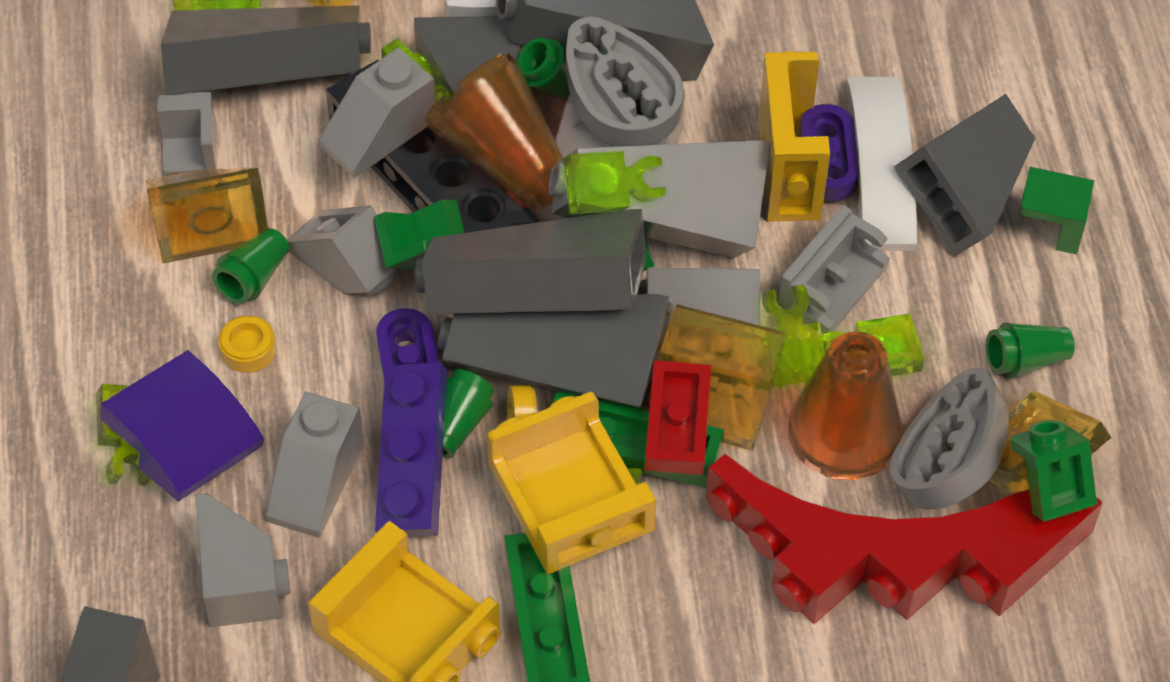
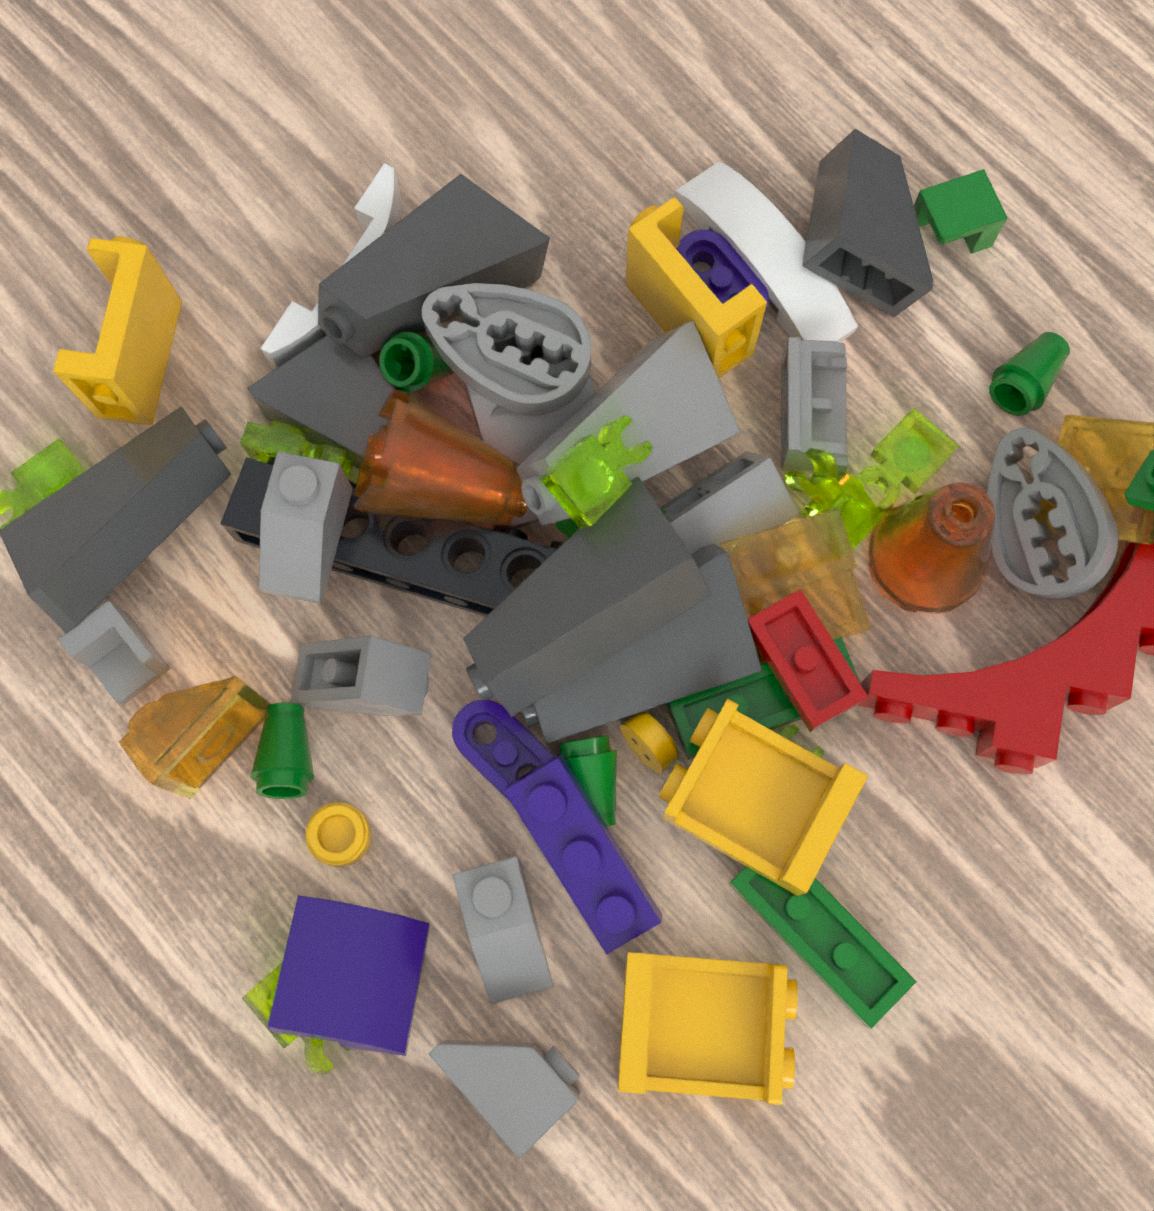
camera: 30 degrees left, 20 degrees up
(407, 236) = (432, 627): green panel -> none

